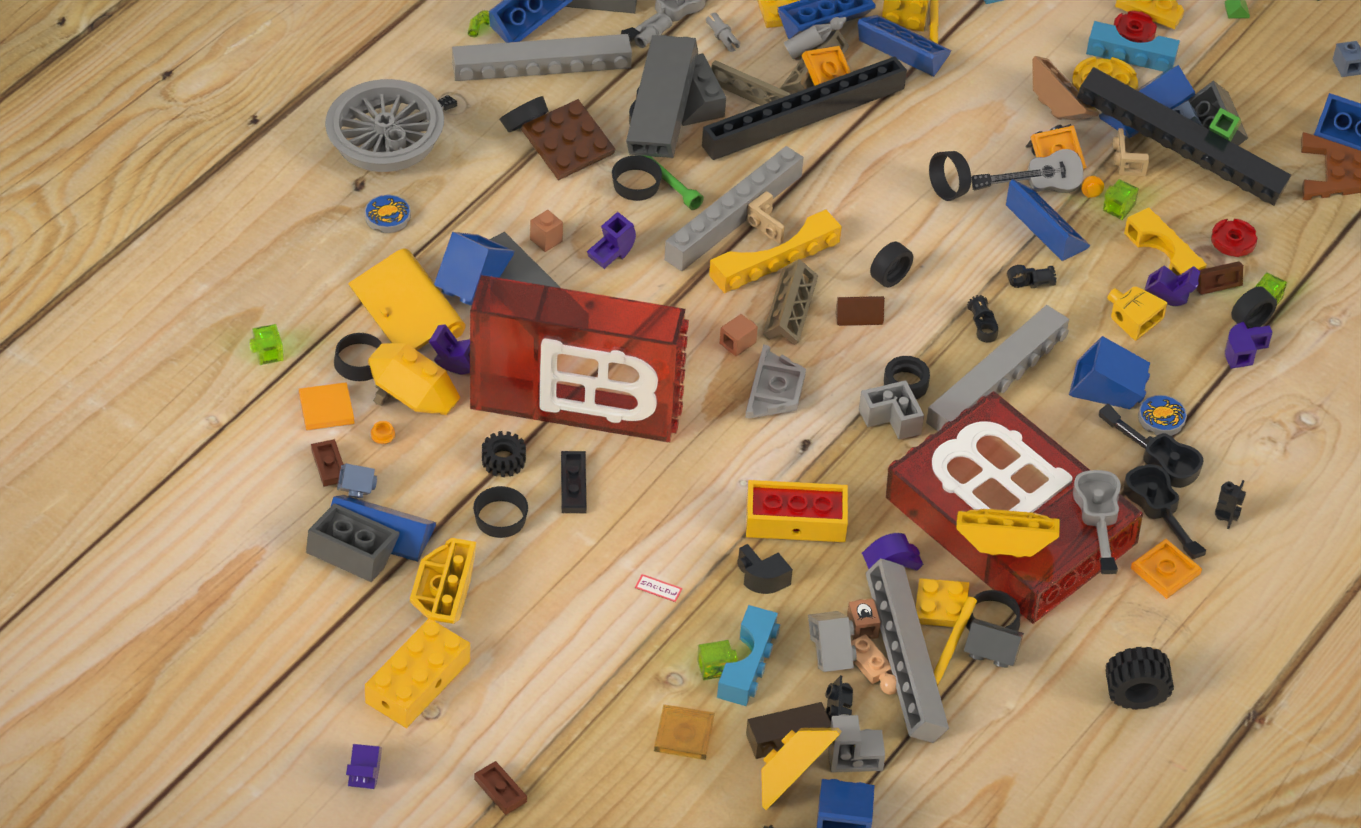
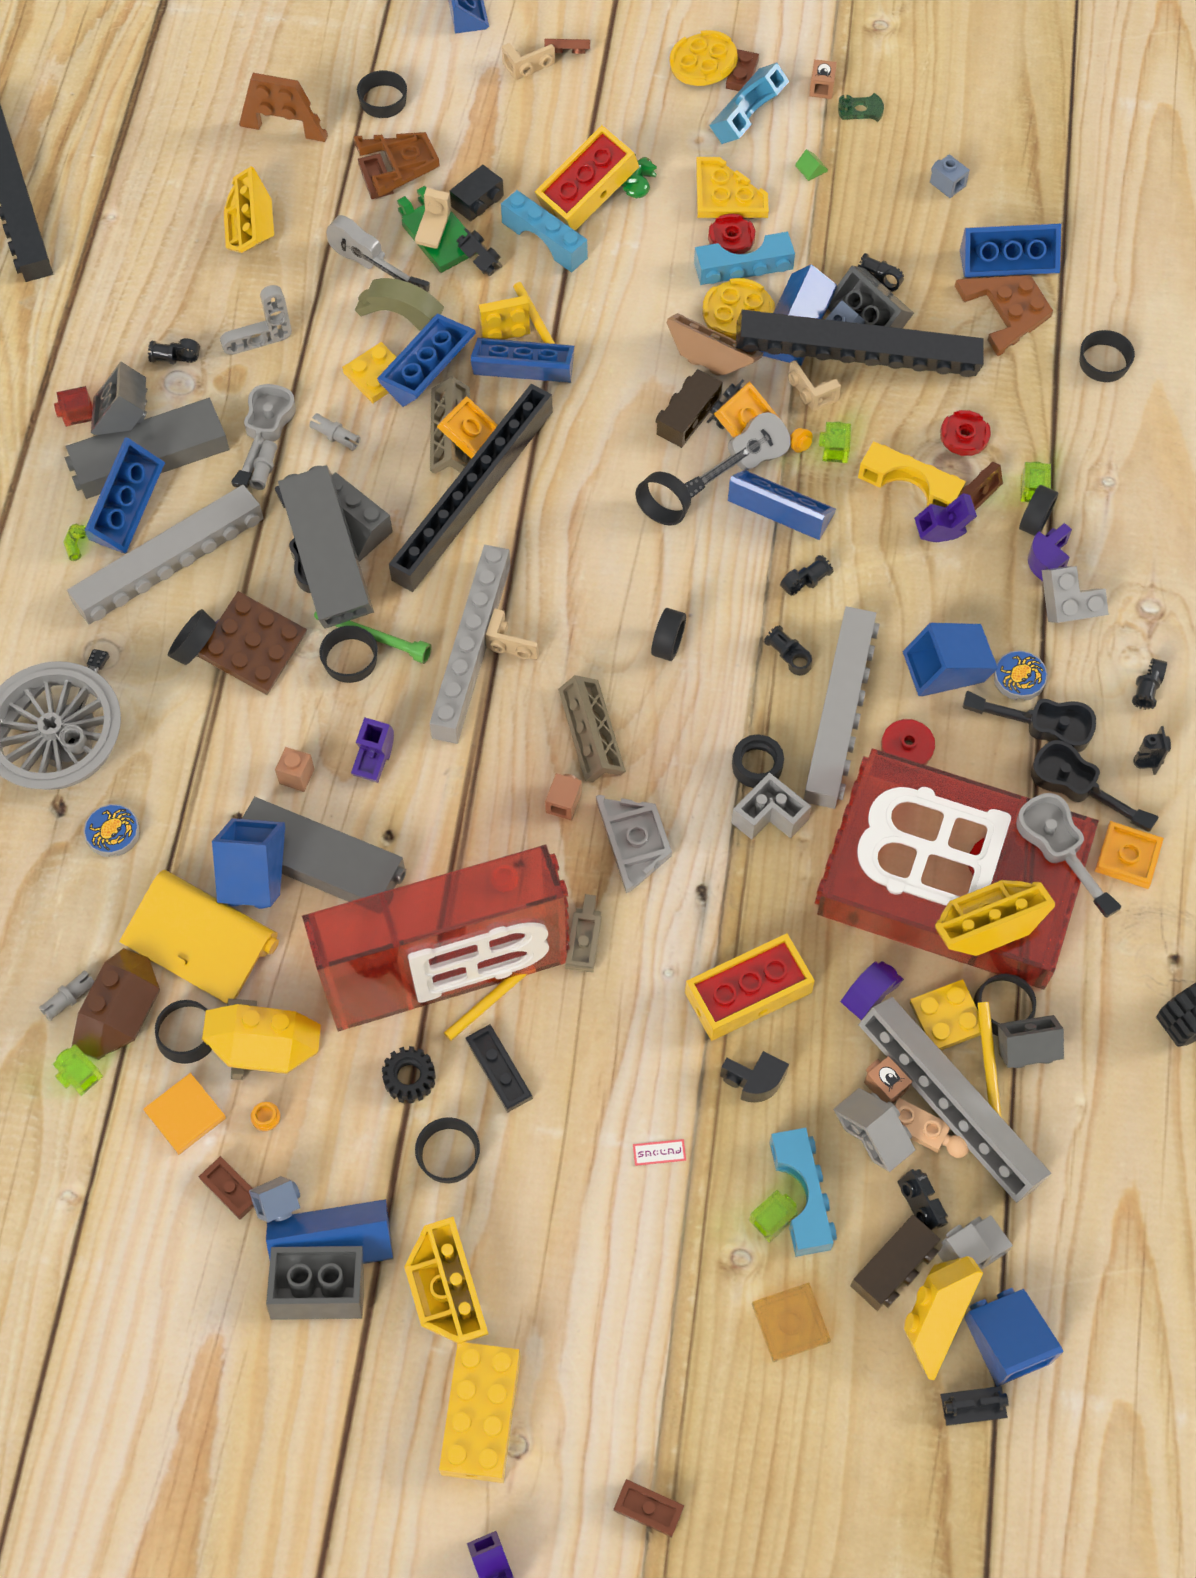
camera: 25 degrees left, 15 degrees up
(289, 298) = (67, 995): none -> light grey pin
(319, 317) = (116, 1004): none -> reddish brown wedge
(451, 354) = (288, 976): dark purple brick -> none
(588, 440) = (482, 1006): none -> yellow bar
(693, 428) = (584, 936): none -> dark tan hinge
(739, 268) = (514, 716): yellow arch -> none
(746, 85) = (402, 485): dark tan fence -> none
(812, 37) = (432, 397): light grey wheel -> none
(860, 310) = (665, 703): reddish brown slope -> none
(1014, 128) = (688, 408): none -> dark brown brick
(1042, 415) = (911, 730): none -> red plate
(1136, 310) = (926, 566): yellow torso -> none
(1225, 124) = (898, 314): bright green brick -> none
(1234, 380) = (1065, 599): none -> light grey brick
(1241, 100) = (880, 270): none -> black connector
(1265, 464) = (1149, 684): none -> black connector

